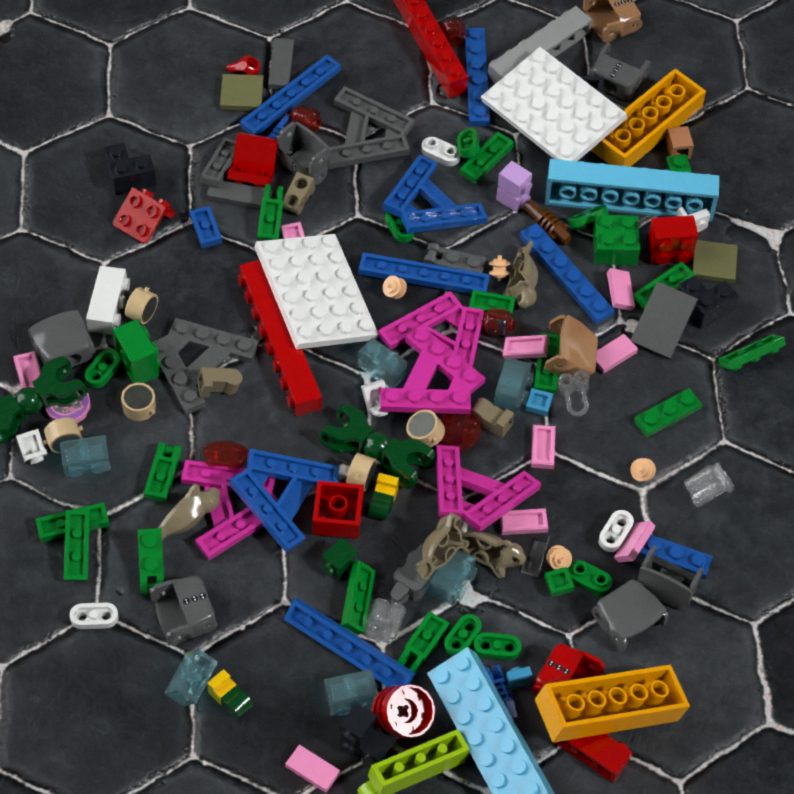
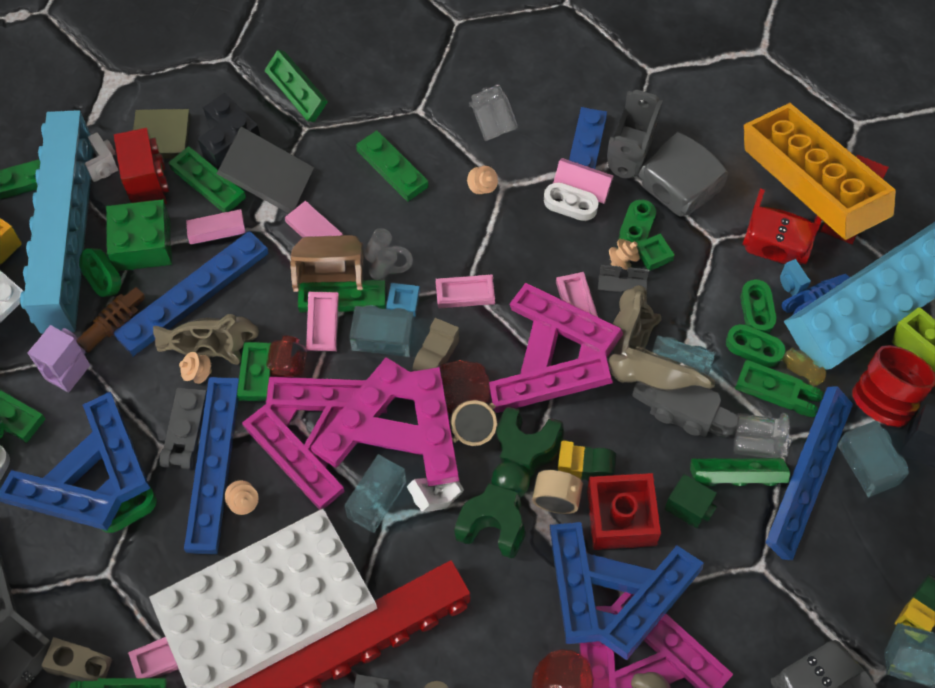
camera: 95 degrees left, 5 degrees up
(429, 663) = (804, 366): none -> clear yellow arm

